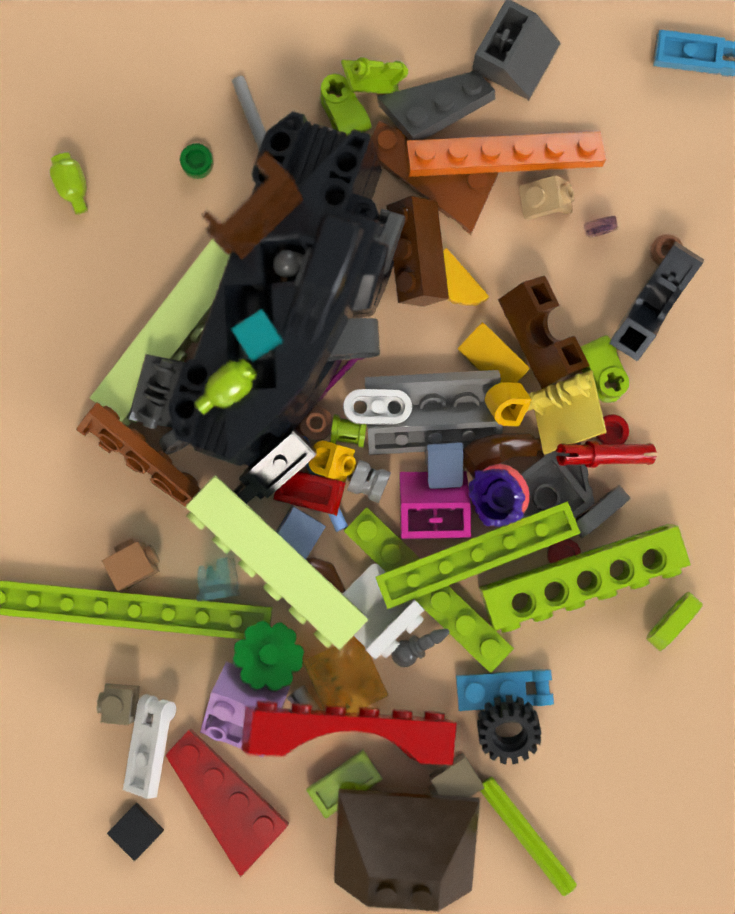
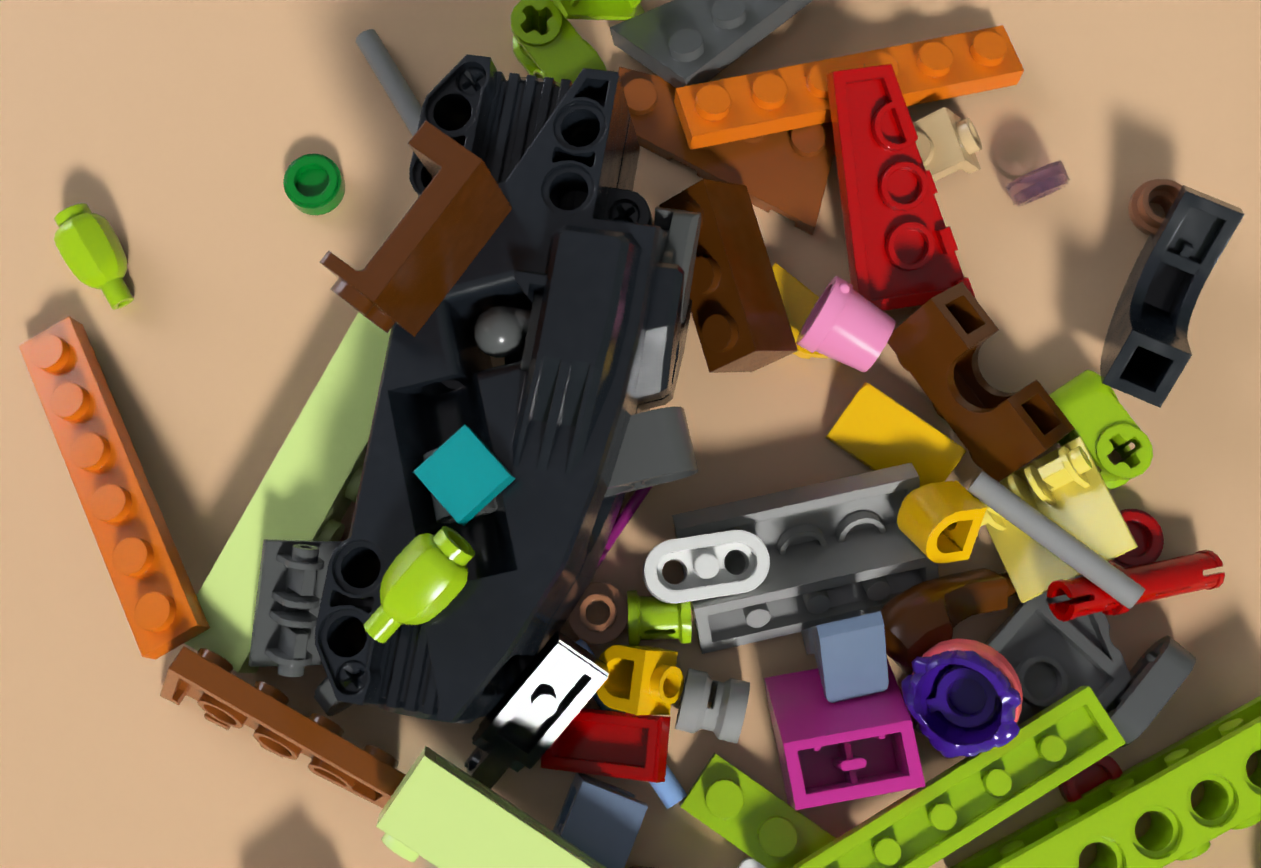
camera: 10 degrees left, 5 degrees down
(65, 312) = (113, 490): none -> orange plate
(476, 290) = (846, 327): none -> bright pink piece
(514, 228) = (890, 214): none -> red wing
(564, 421) = (1056, 540): none -> light grey bar

